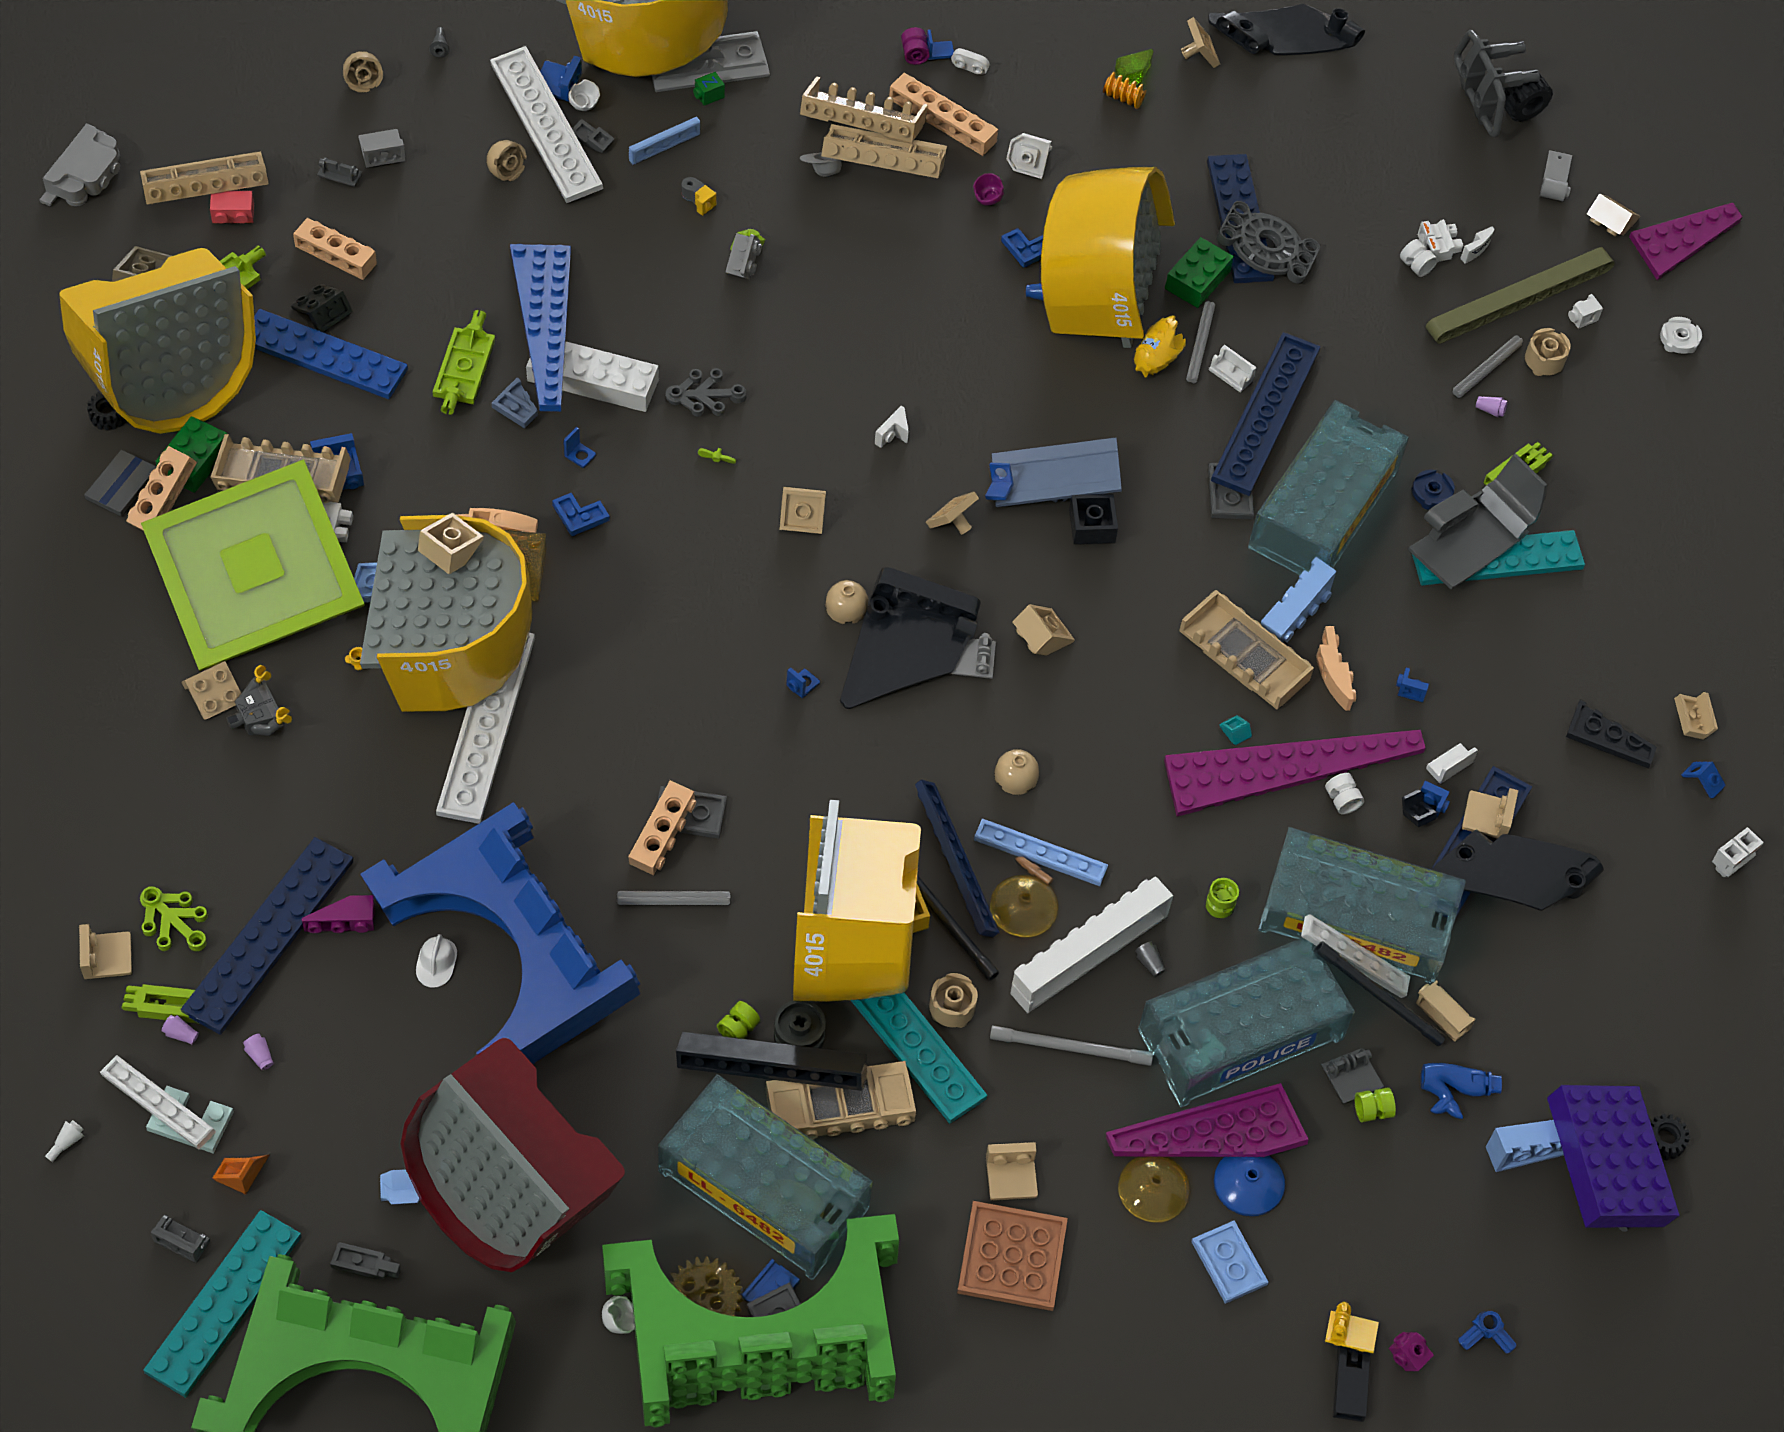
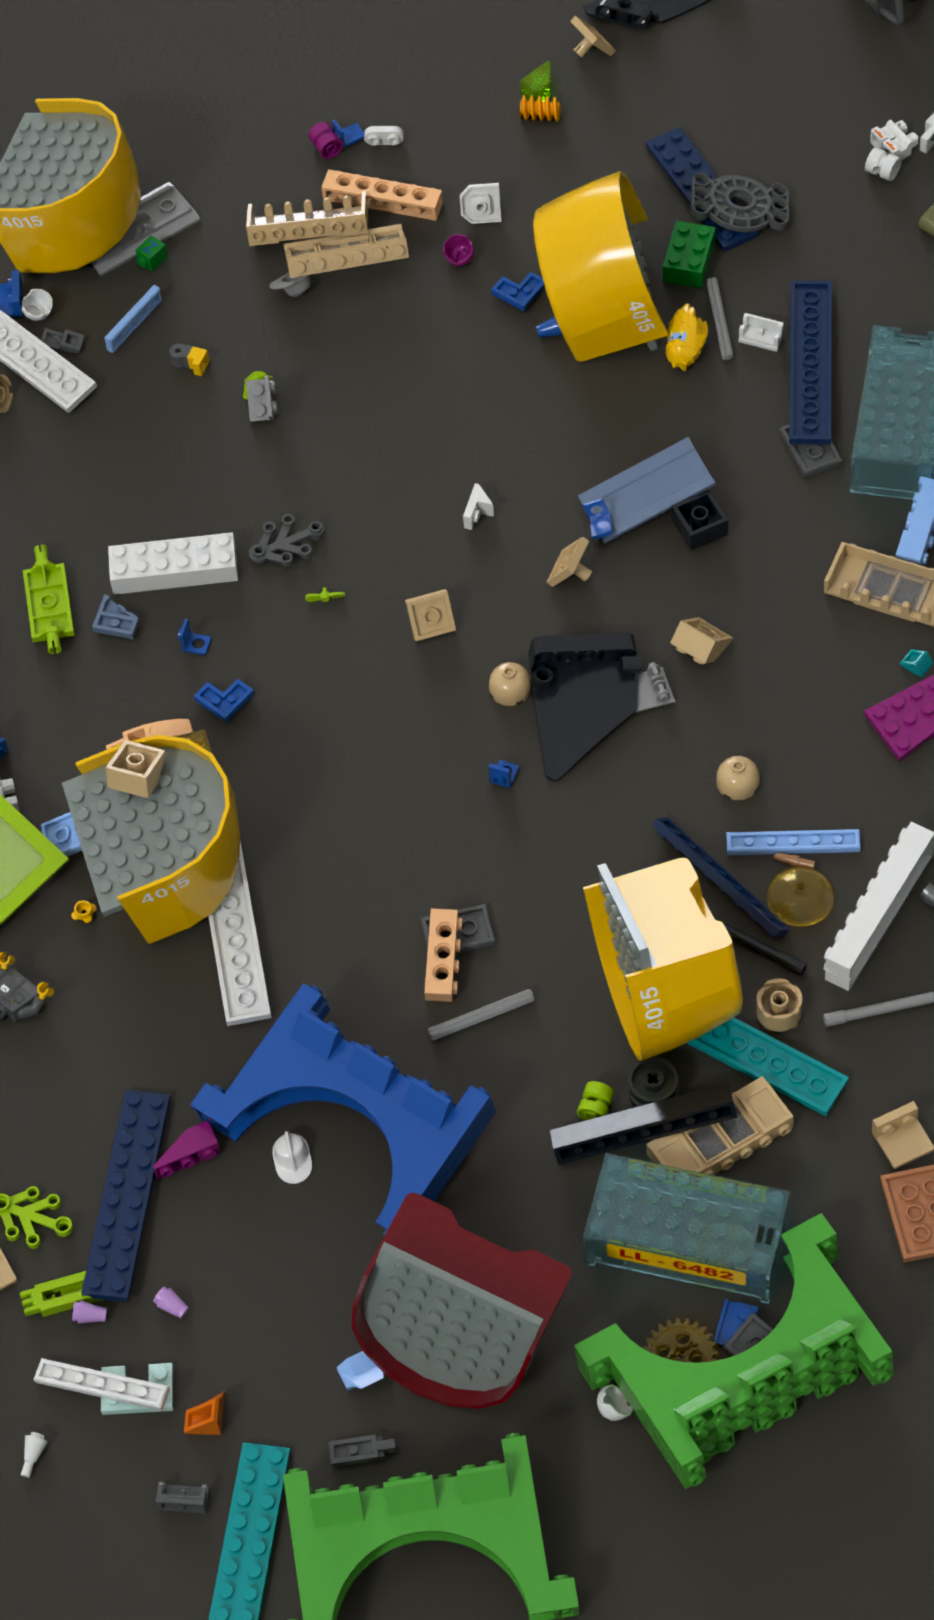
camera: 10 degrees left, 0 degrees up
(543, 291) = (91, 505): wing -> none

